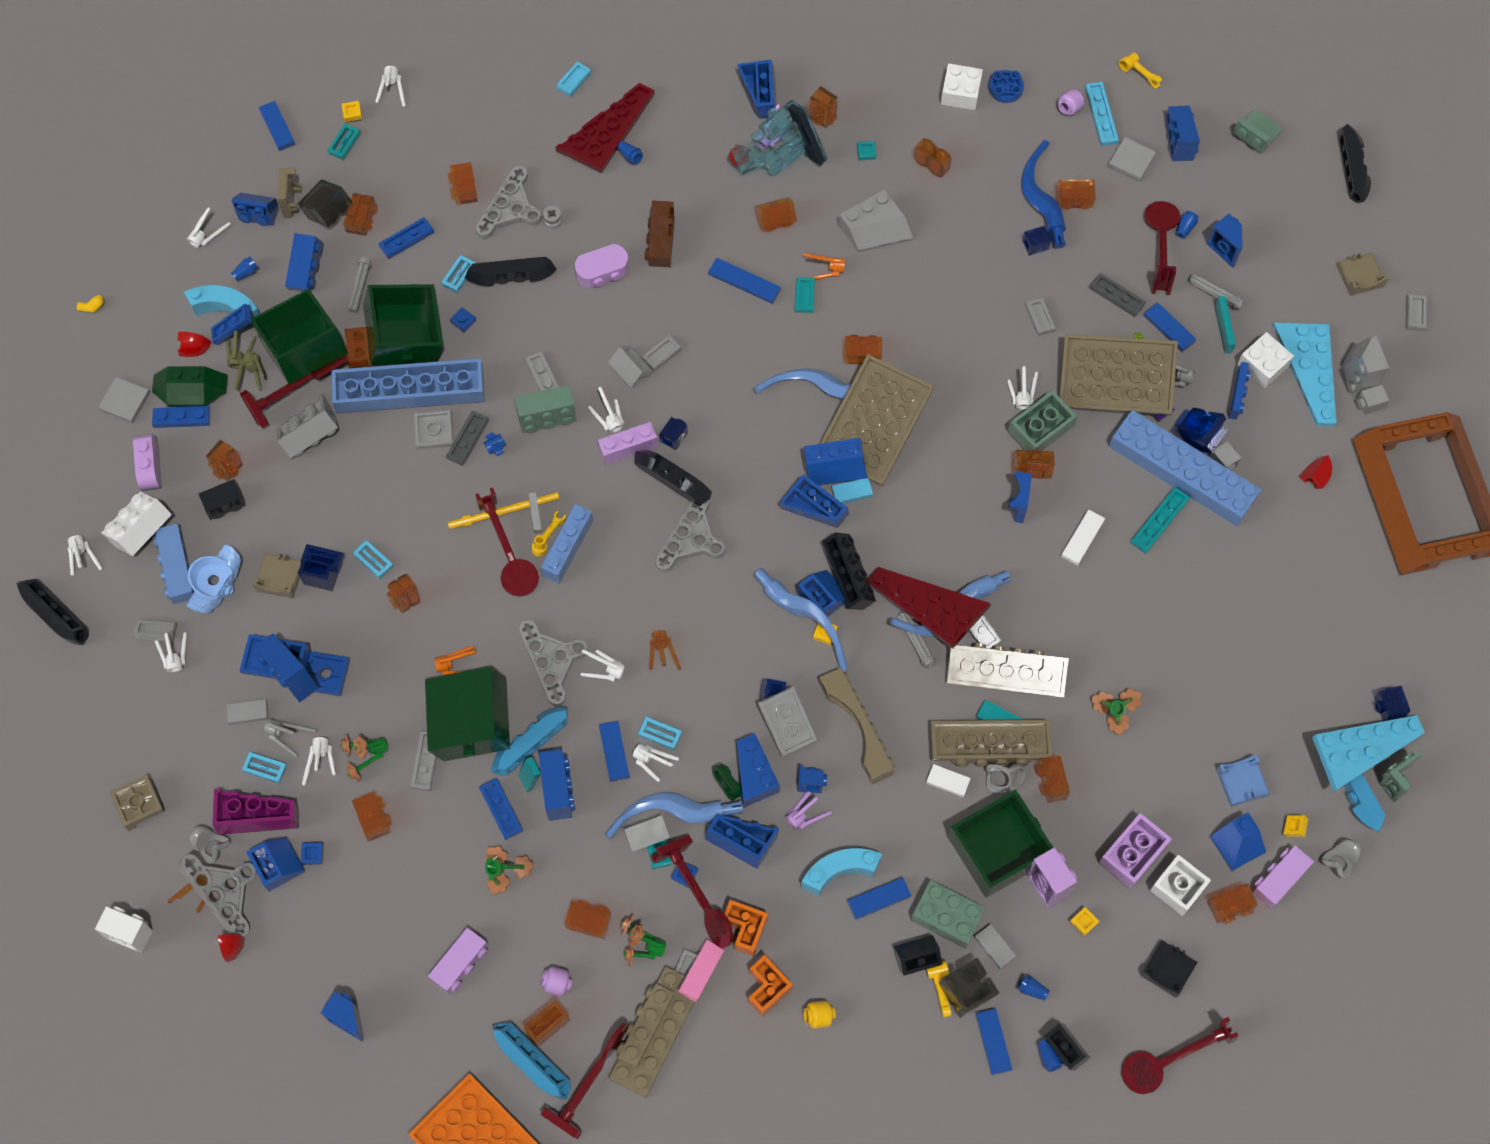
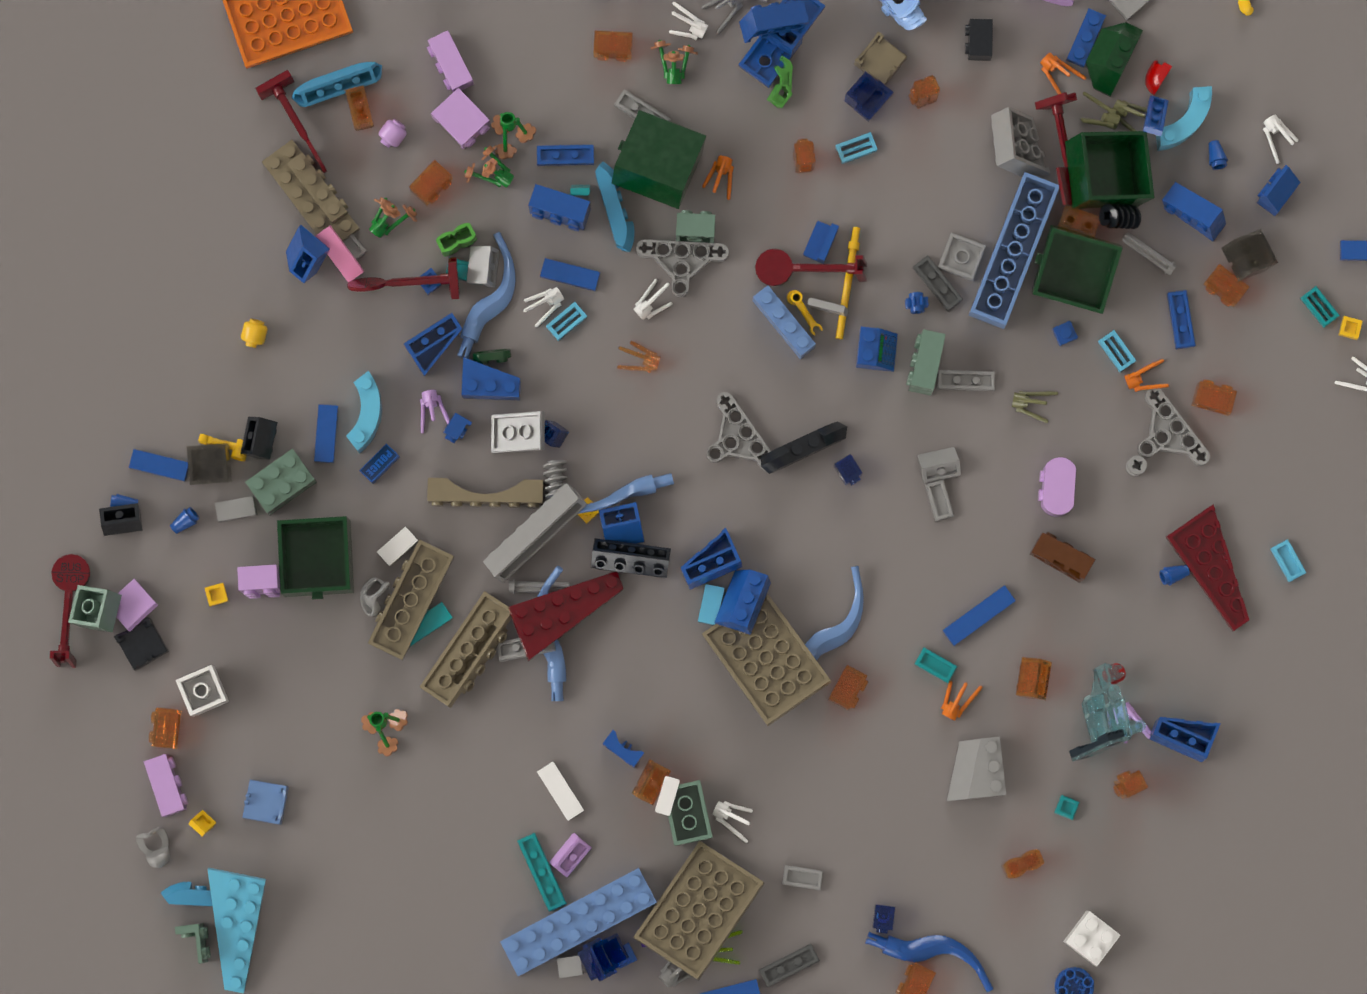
camera: 115 degrees right, 15 degrees up
(218, 431) = (1051, 63): none -> orange plant
(223, 461) = (1014, 54): clear orange brick -> none
(286, 191) = (1281, 225): dark tan piece -> none
(293, 519) = (924, 91): none -> clear orange brick
(338, 313) = (1120, 216): none -> black piece
(349, 645) = (785, 75): none -> bright green piece
(476, 548) = (820, 241): none -> blue panel
(478, 248) = (1134, 379): none -> orange plant
(510, 271) = (1101, 375): black brick -> none
(510, 922) = (461, 119): none -> lavender panel
(516, 655) = (695, 227): none -> sand green brick
(541, 326) = (1022, 399): none -> olive plant
(548, 861) = (502, 177): none -> plant
(554, 460) = (876, 349): none -> blue slope
(613, 422) = (887, 420): white plant -> none
(627, 442) = (857, 422): lavender brick -> none
(637, 868) = (461, 237): none -> bright green brick
(718, 1001) = (305, 254): none -> blue slope
(749, 922) = (357, 312): orange brick -> none
(773, 986) = (295, 305): orange brick -> none
(812, 668) = (554, 476): none -> light grey piece
(872, 658) = (534, 532): none -> light grey brick
(881, 834) = (379, 463): none -> slope
(1039, 440) = (667, 795): none -> white sticker
(1053, 778) = (349, 635): clear orange brick -> none
(1132, 505) = (570, 855): none -> lavender slope
(1135, 850) = (251, 669): lavender brick -> none
(1139, 995) = (134, 605): none -> lavender tile
(1164, 1024) = (95, 608): none -> sand green brick
(1239, 841) = (215, 765): blue slope -> none
(1392, 703) = (264, 975): clear blue head -> none

